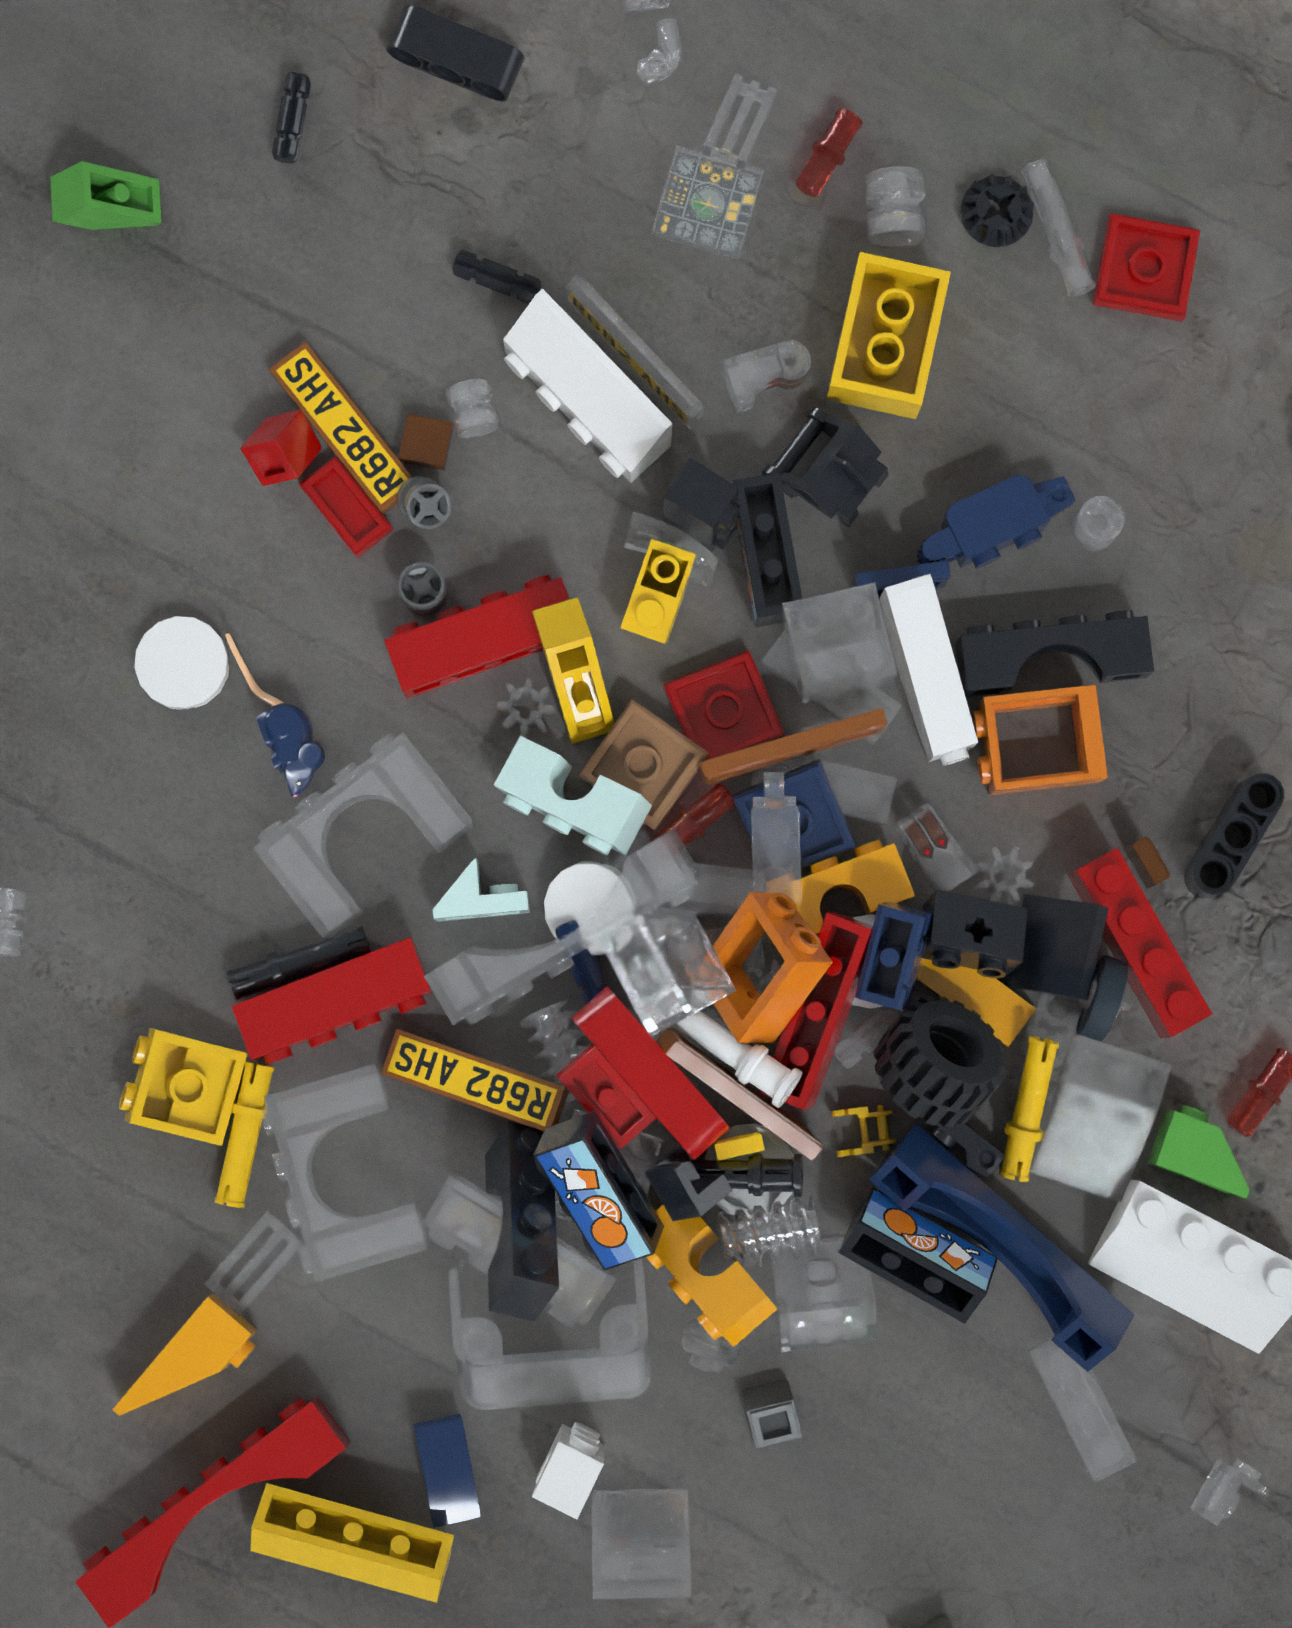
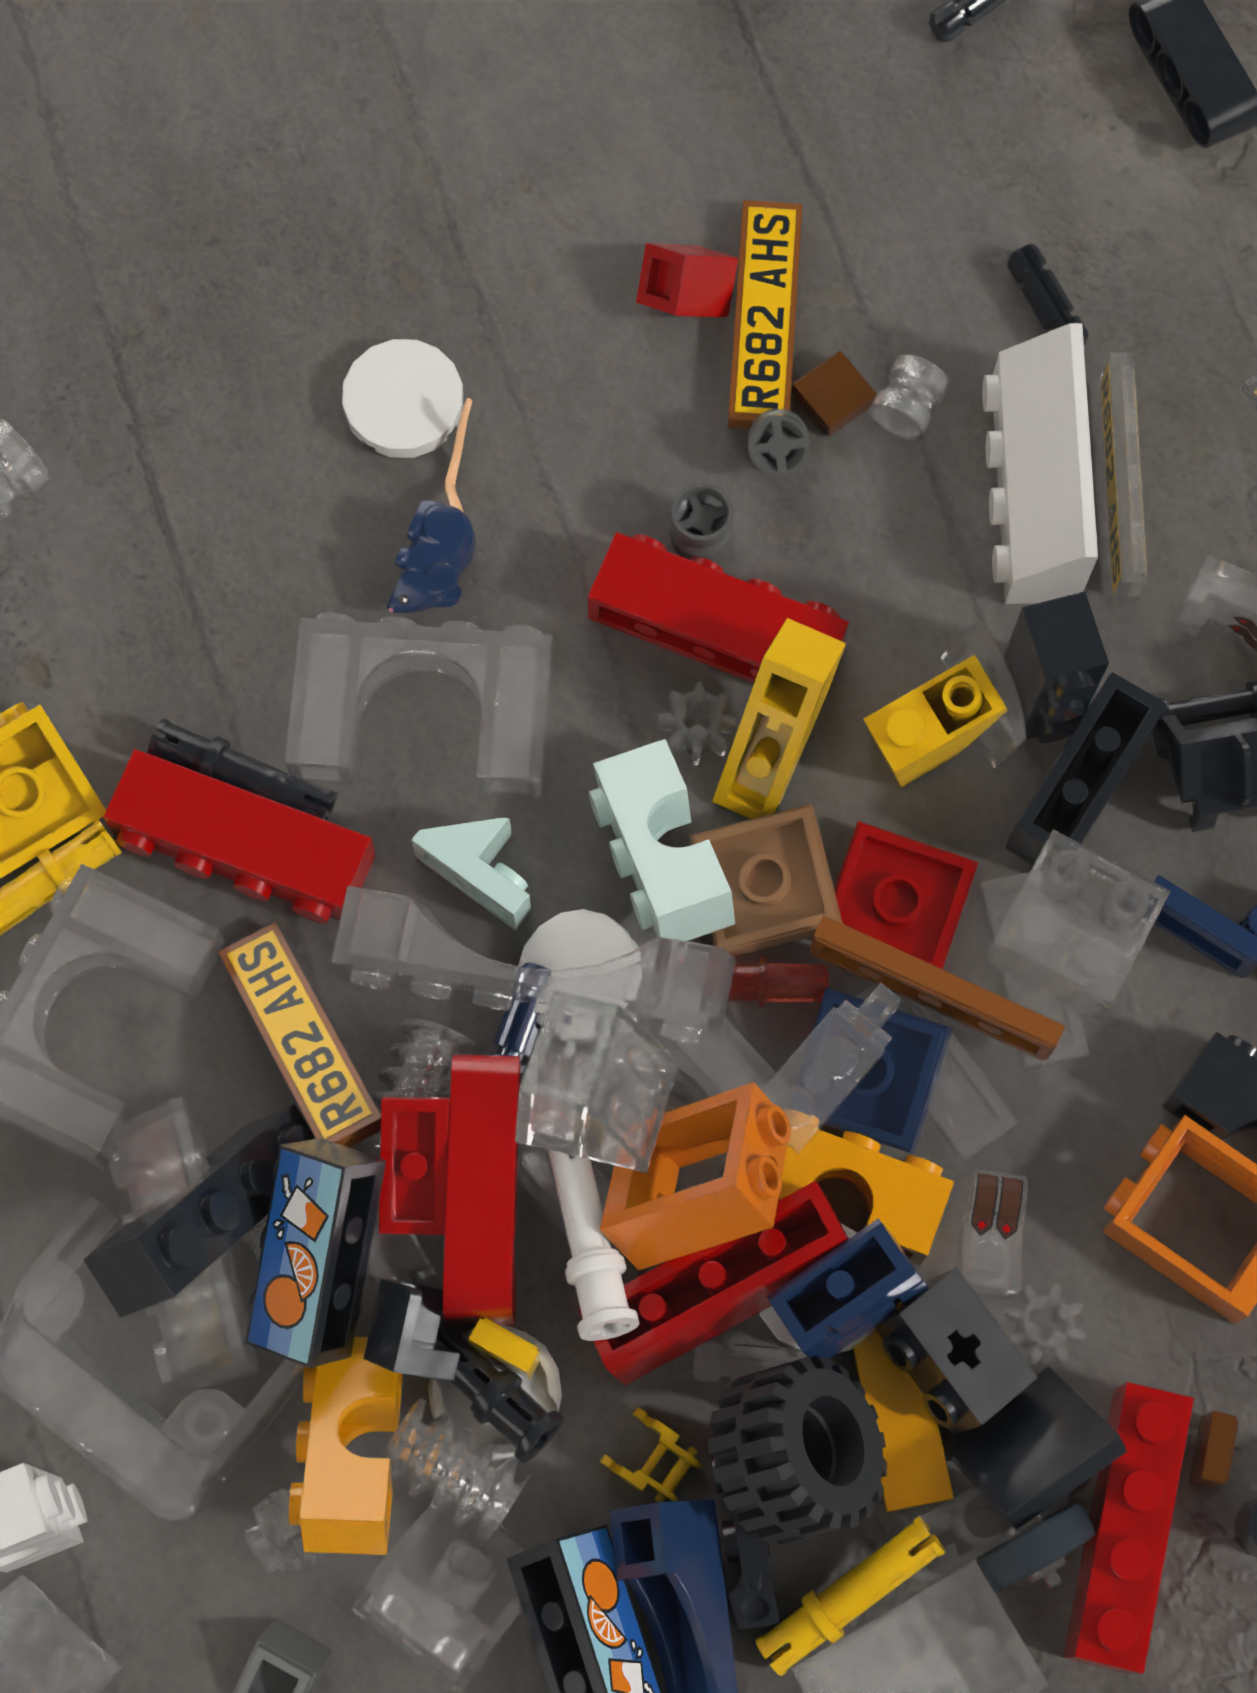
camera: 45 degrees right, 10 degrees down
(346, 507) = (698, 389): red tile -> none
(741, 1095) = (555, 1294): tile -> none
(928, 669) = (1150, 1037): white slope -> none

